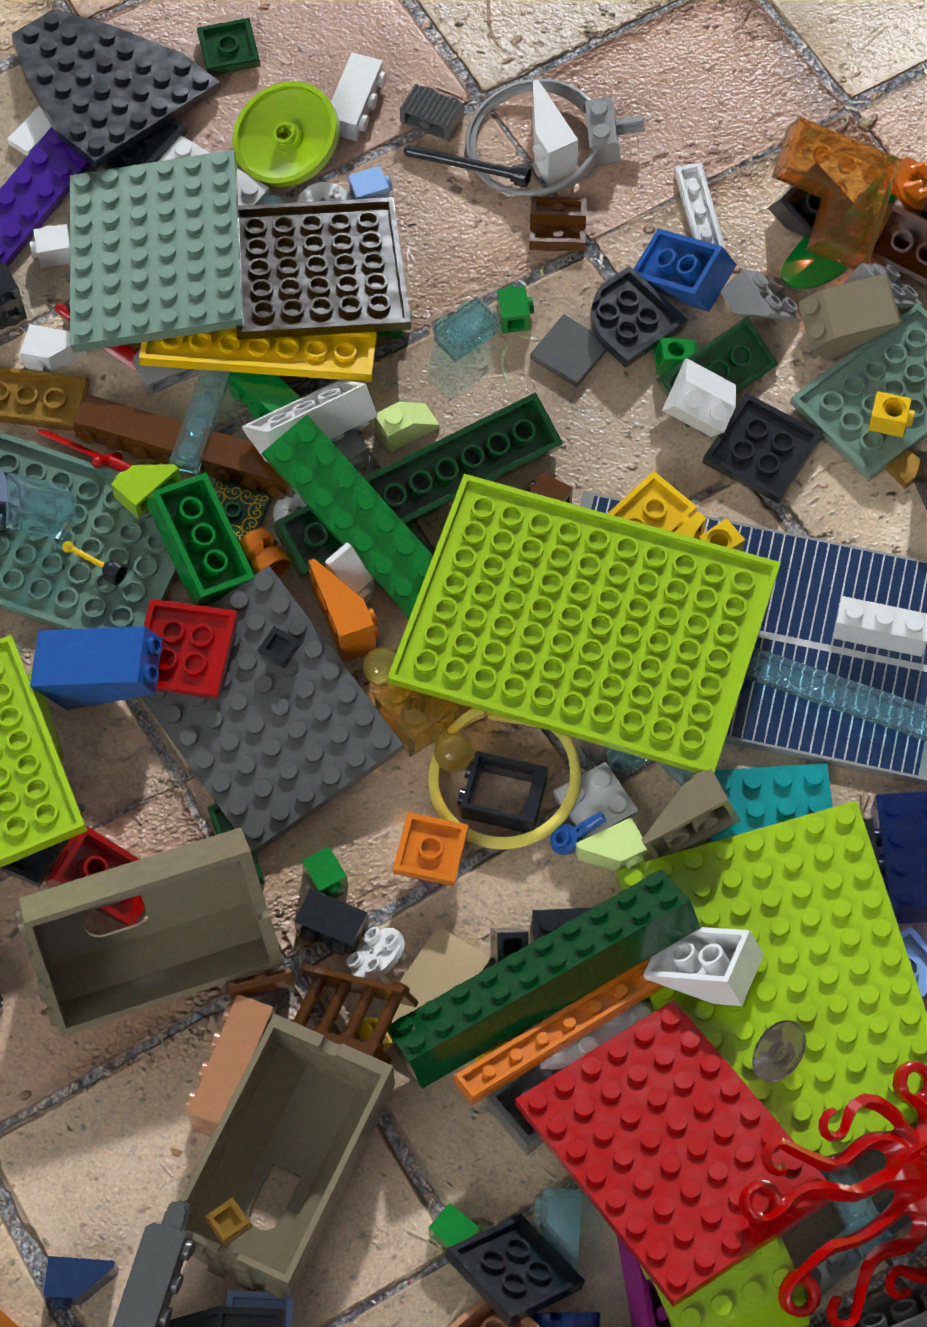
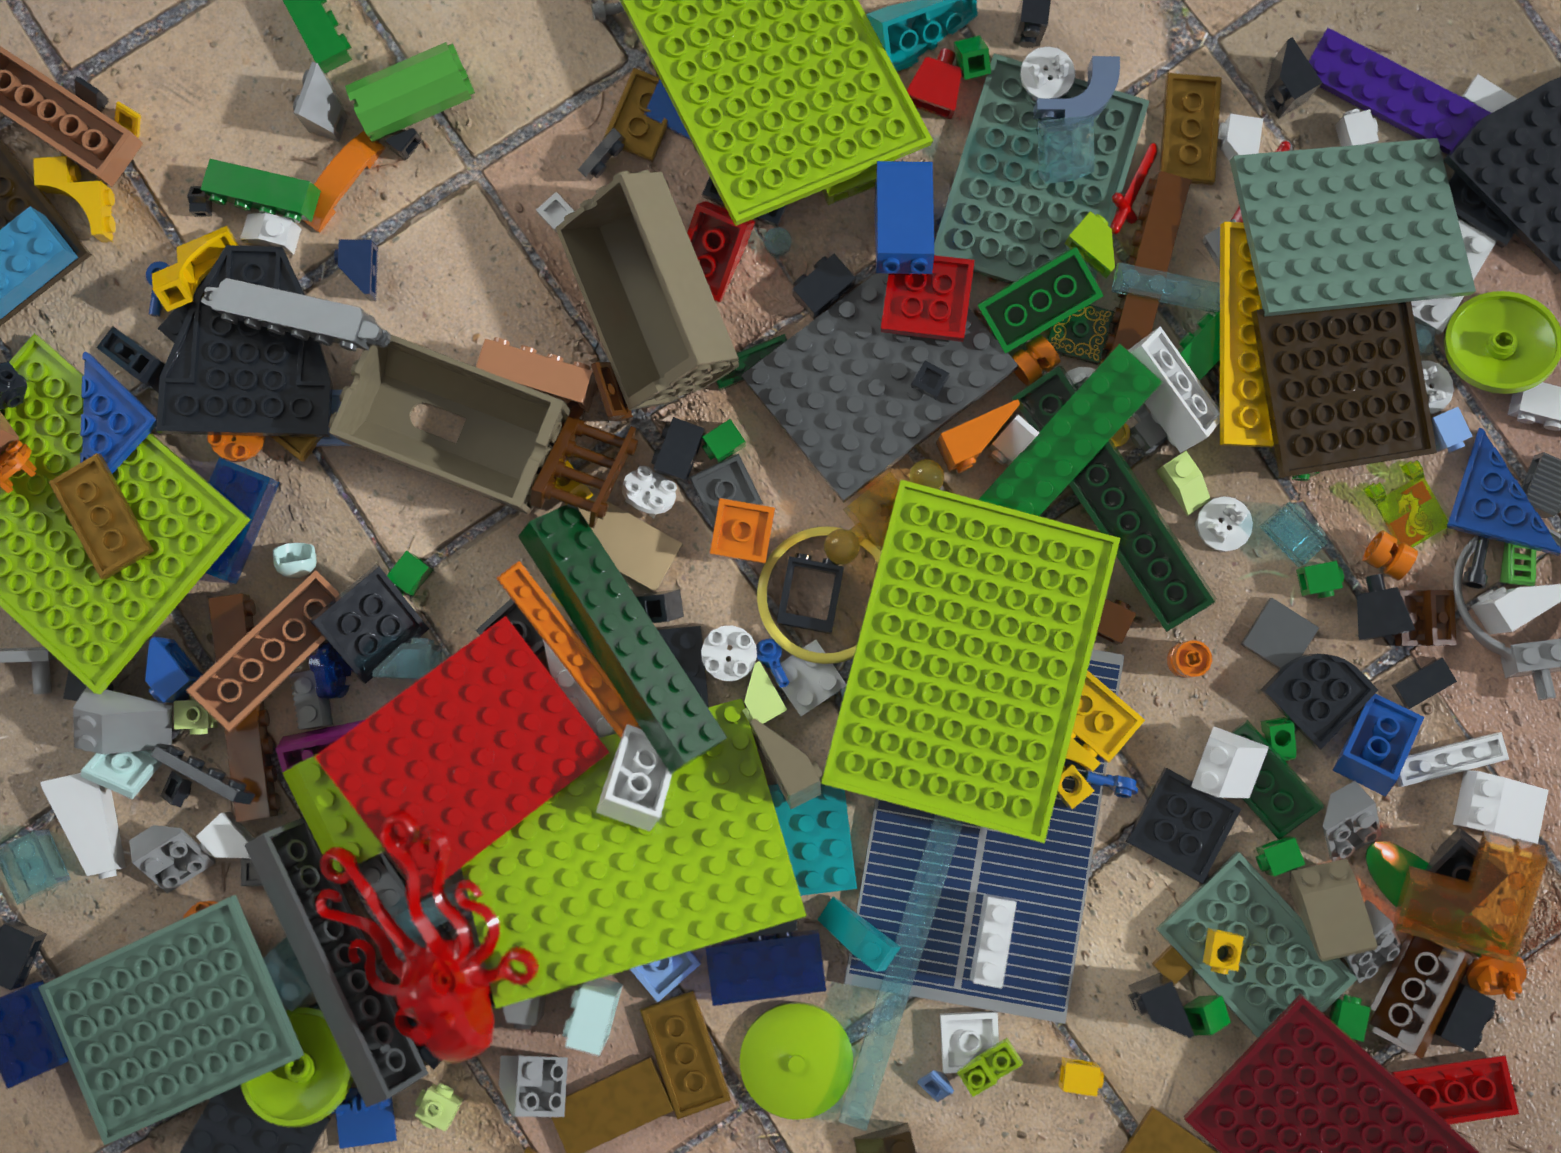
camera: 85 degrees right, 20 degrees up
(37, 1048) = (554, 210): none -> white plate
(100, 810) = (777, 241): none -> clear light blue tile
(113, 570) = (1006, 224): black hinge -> none
(158, 762) = (823, 285): none -> black brick
(228, 1222) = (377, 378): pearl gold tile -> none
(373, 879) = (725, 481): none -> dark grey tile
(446, 228) = (1410, 509): none -> clear neon green flag
(448, 153) = (1494, 503): none -> blue tile
(459, 400) = (1215, 533): none -> white plate
(493, 245) = (1387, 553): none -> orange wheel
(510, 131) = (1529, 568): none -> bright green slope
(550, 255) = (1381, 611): none -> black torso
(563, 890) = (742, 654): none -> white plate
(591, 429) = (1189, 659): none -> orange wheel
(623, 228) = (1424, 683): none -> black tile
(720, 501) = (1123, 786): none -> blue plate
(746, 174) = (1500, 806): none -> white slope
(779, 1051) = (554, 846): dish -> none
(795, 362) = (1279, 856): none -> green brick
(875, 759) = (858, 935): none -> teal slope

